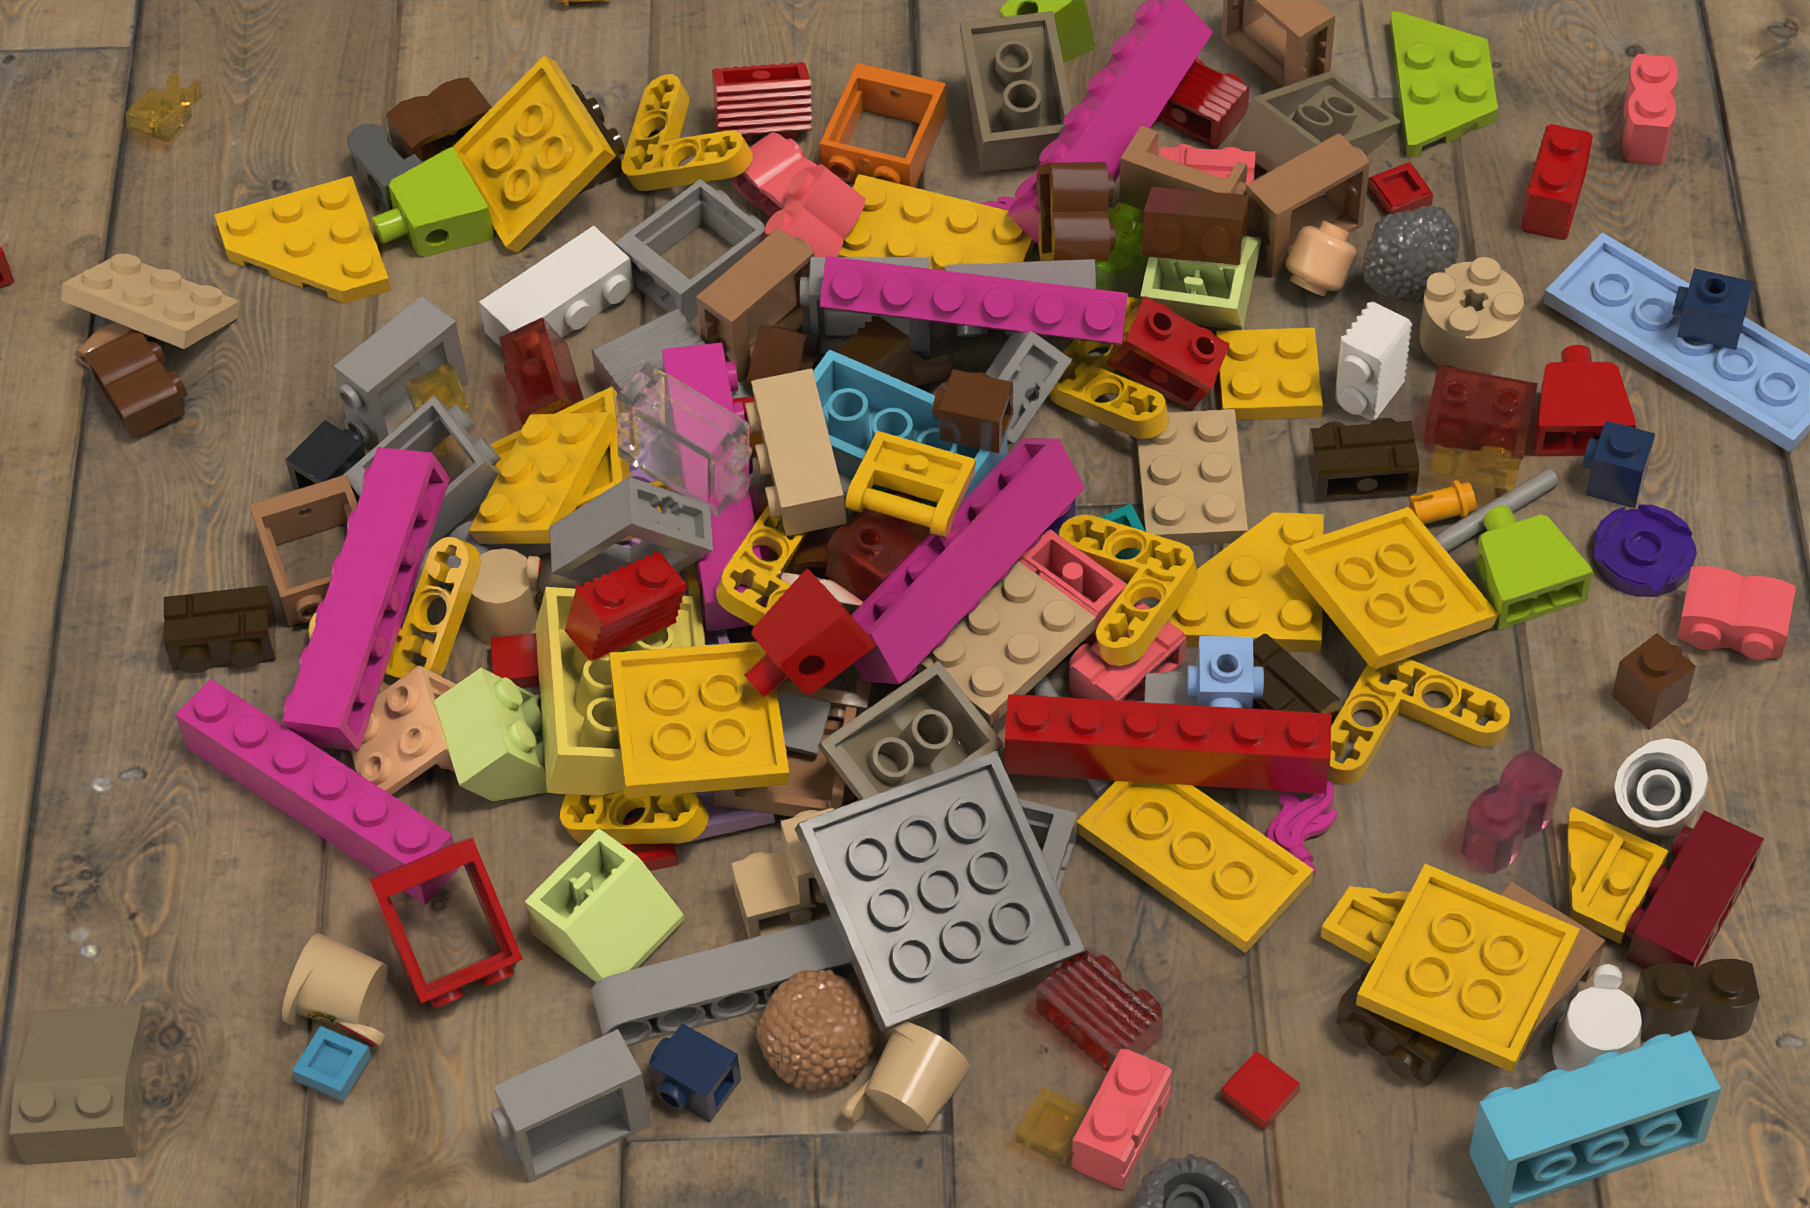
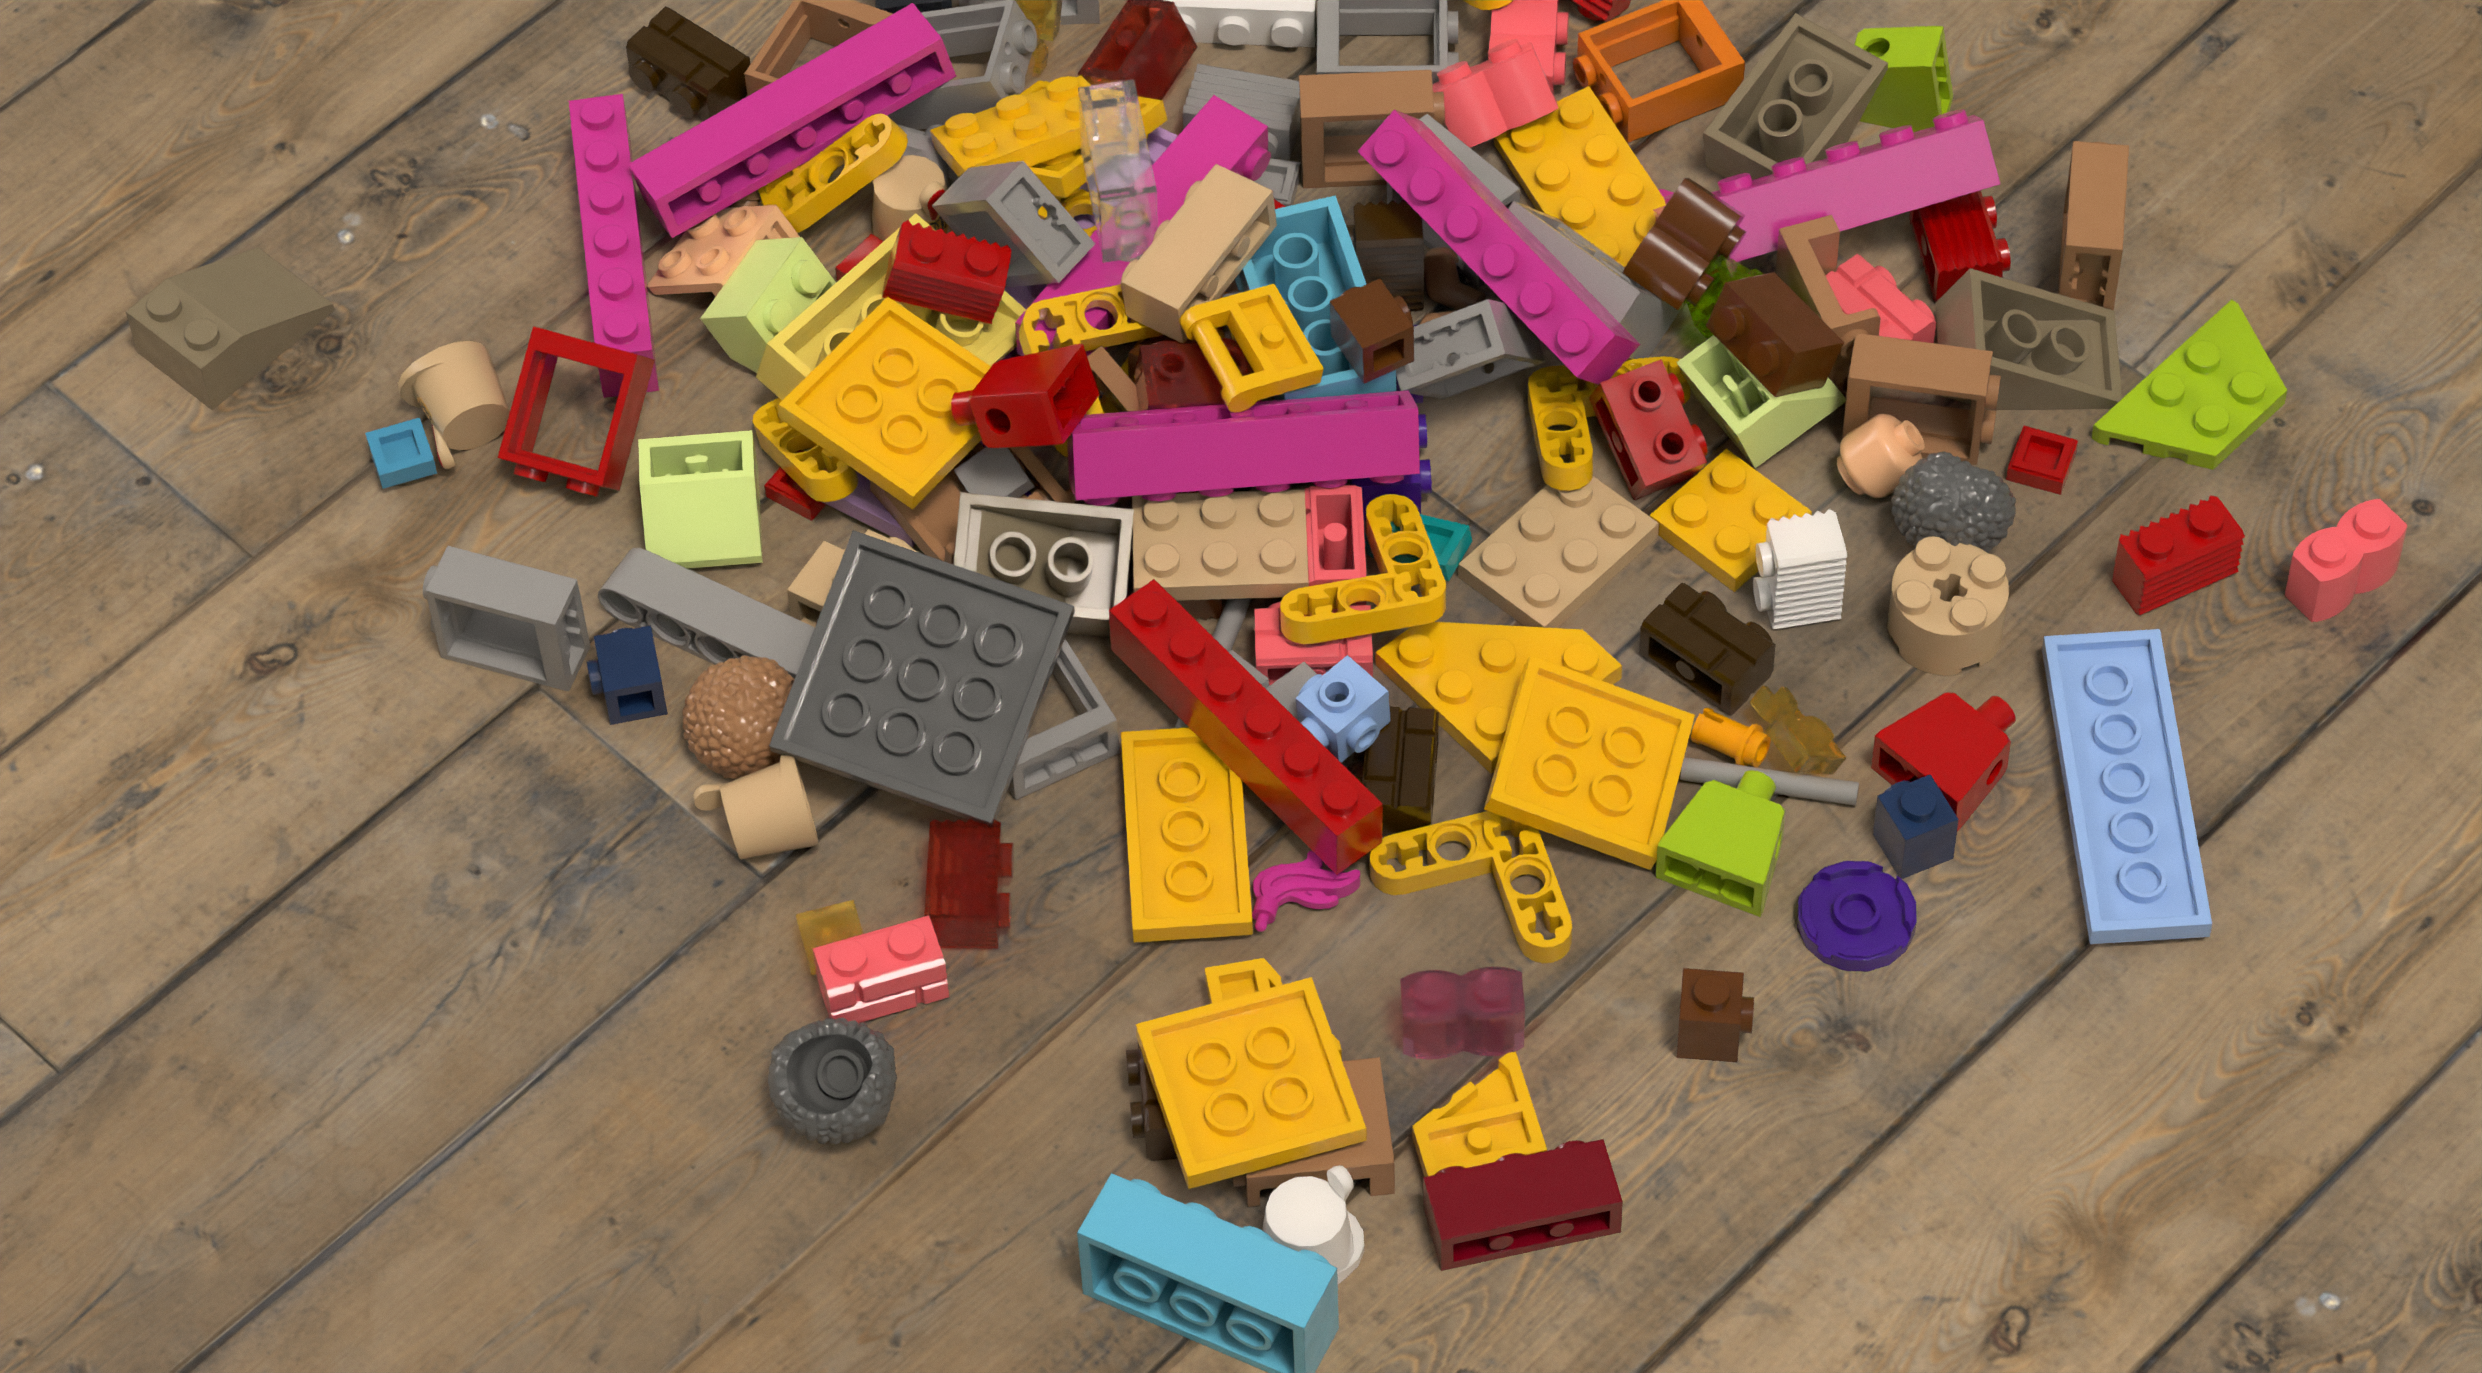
camera: 45 degrees right, 0 degrees up
(781, 352) = (1340, 173): reddish brown brick -> none
(1260, 1090) = (1016, 1048): red tile -> none
(1479, 411) = (1851, 687): clear red brick -> none
(1662, 786) = (1589, 1095): white hat -> none
(1708, 1000) = (1421, 1277): dark brown brick -> none
(1712, 308) = (2153, 763): dark blue brick -> none
(1736, 612) = (1856, 1024): coral brick -> none

